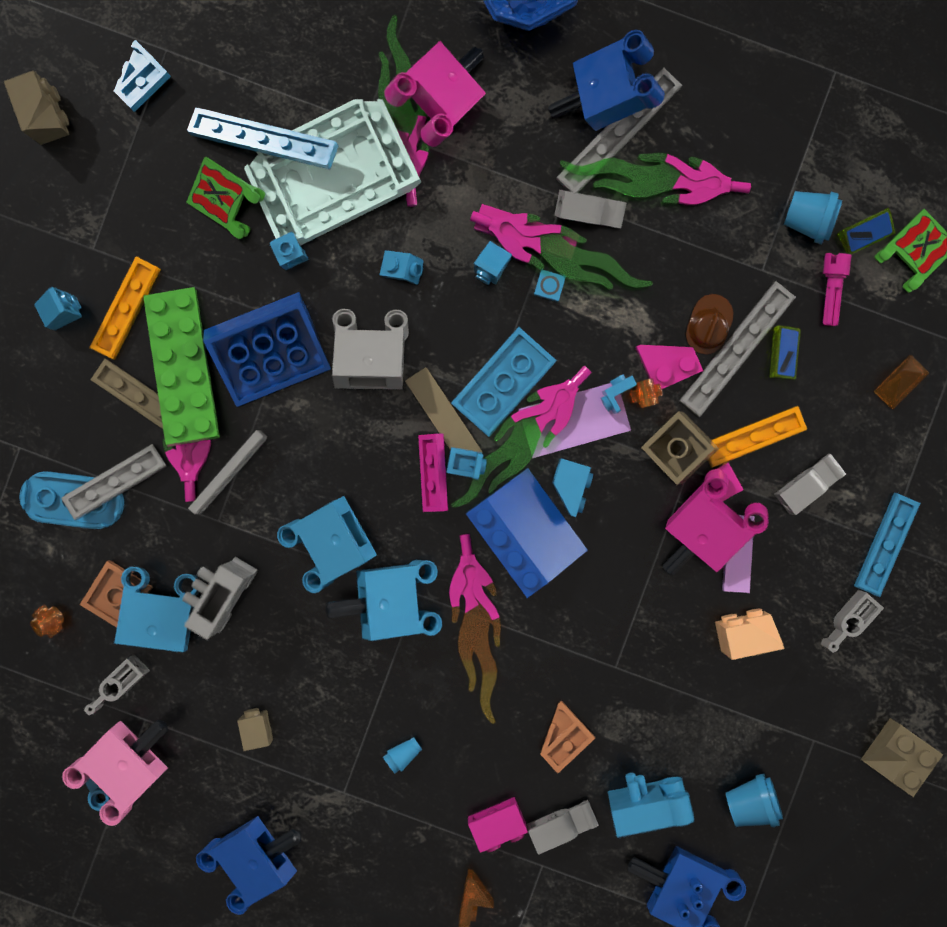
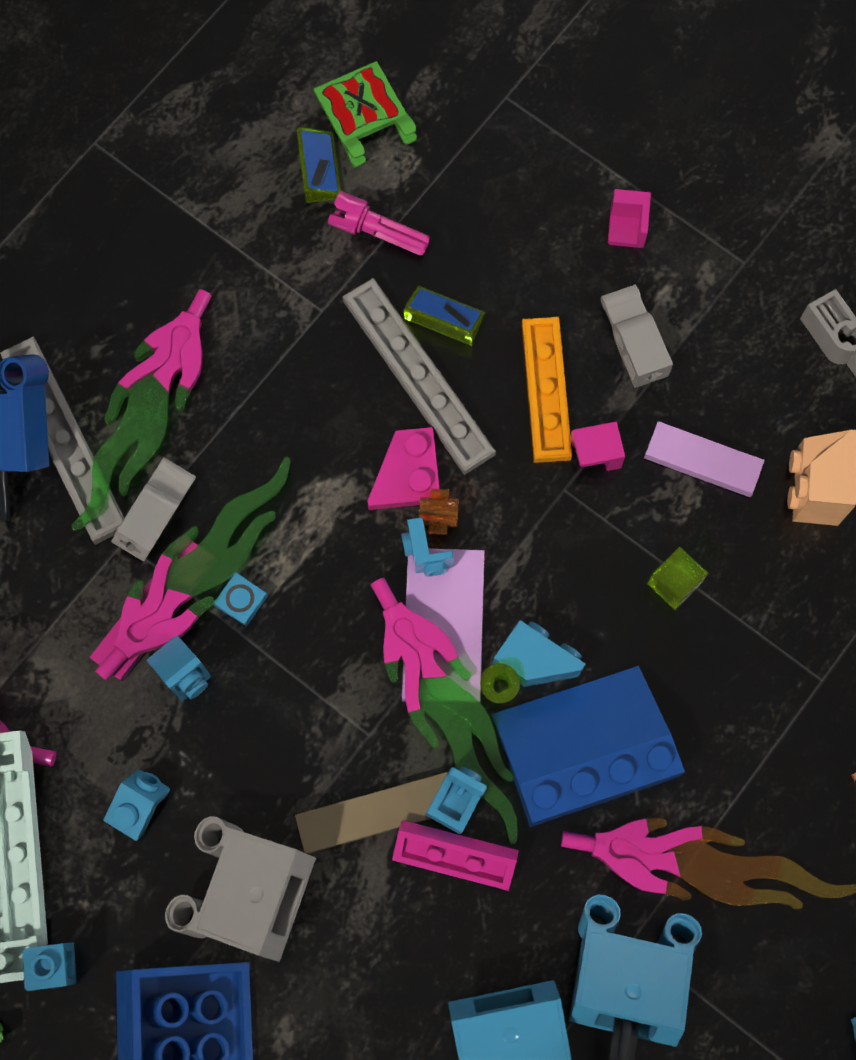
camera: 70 degrees left, 15 degrees down
(503, 381) = (356, 709): dark azure tile -> none
(537, 467) = (499, 672): none -> clear neon green cone
(651, 558) = (677, 578): none -> clear neon green brick
(680, 448) = (531, 489): dark tan slope -> none
(709, 324) = (371, 400): reddish brown piece -> none
(711, 527) = (657, 479): dark pink piece -> none
(814, 214) = (271, 220): dark azure piece -> none
(887, 544) = (748, 263): dark azure tile -> none
(893, 455) = (629, 218): none -> dark pink panel
(901, 382) = (533, 182): clear orange slope -> none

